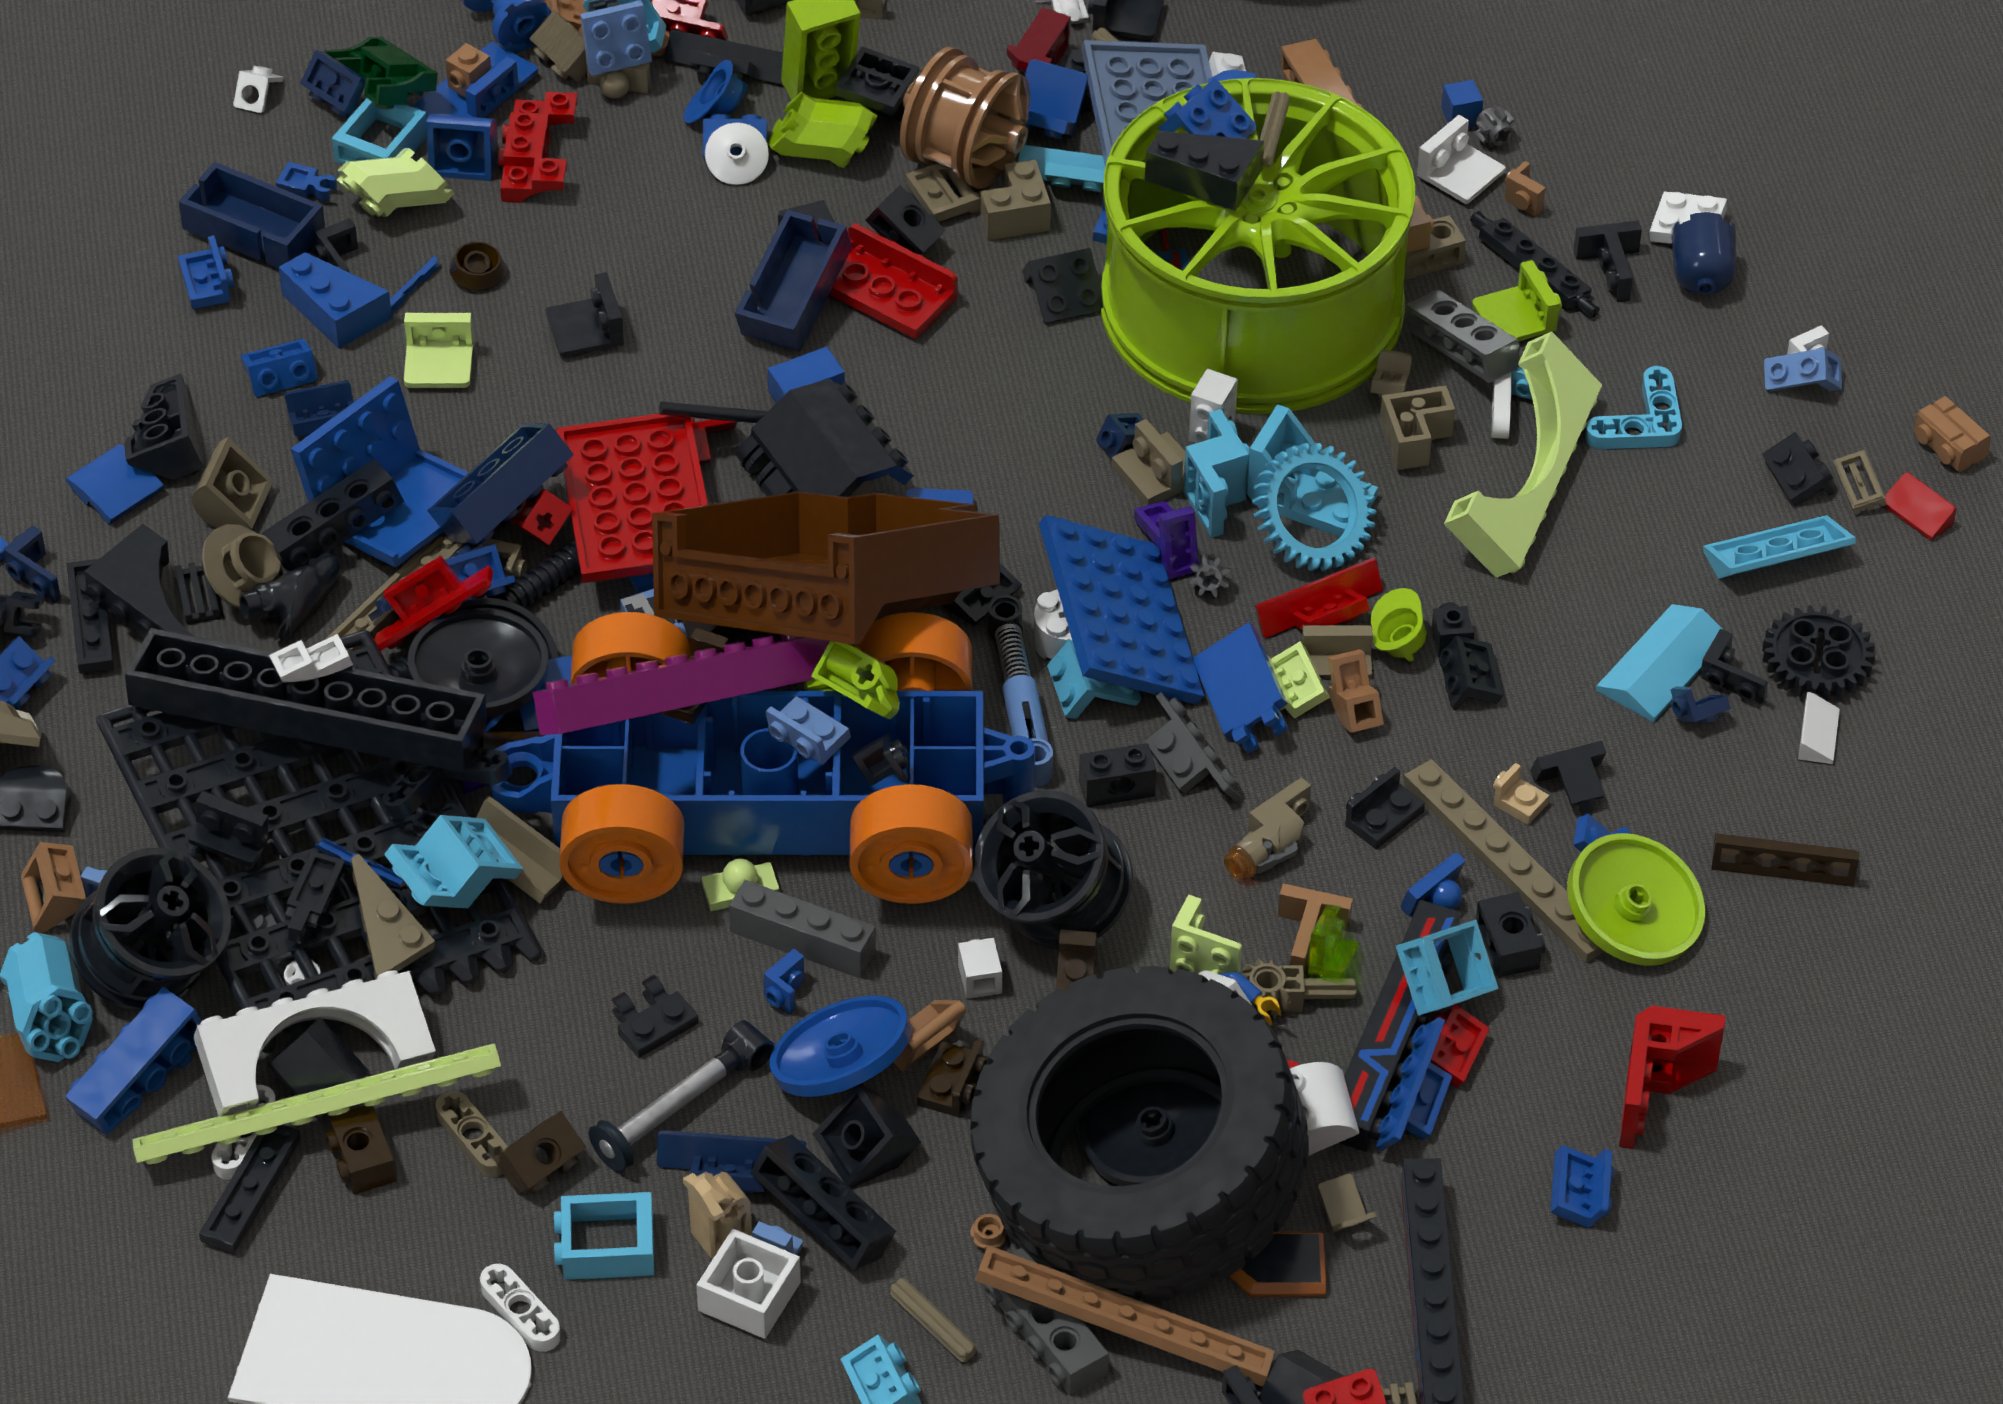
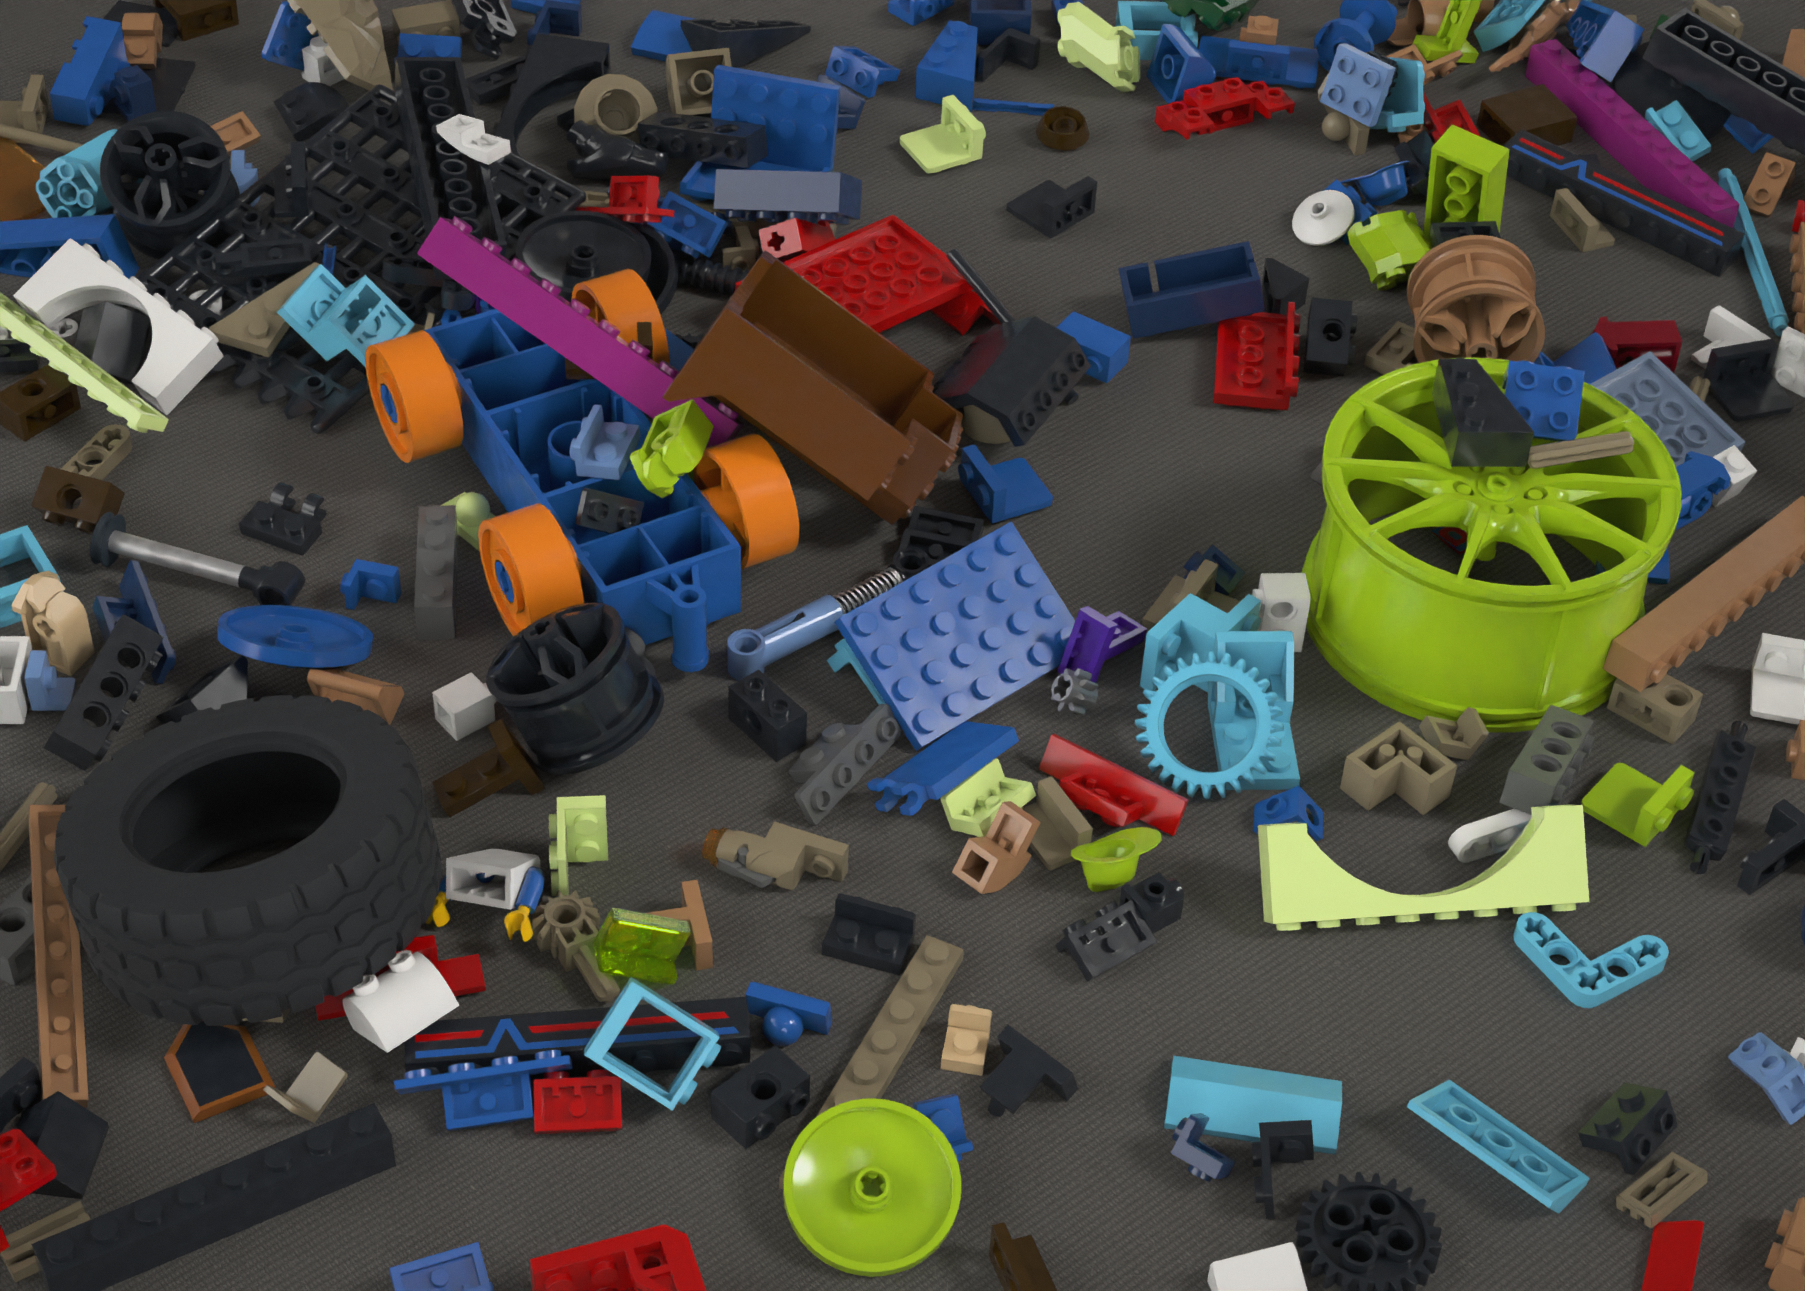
camera: 60 degrees right, 5 degrees down
(1406, 514) = (1288, 808): none -> blue bracket

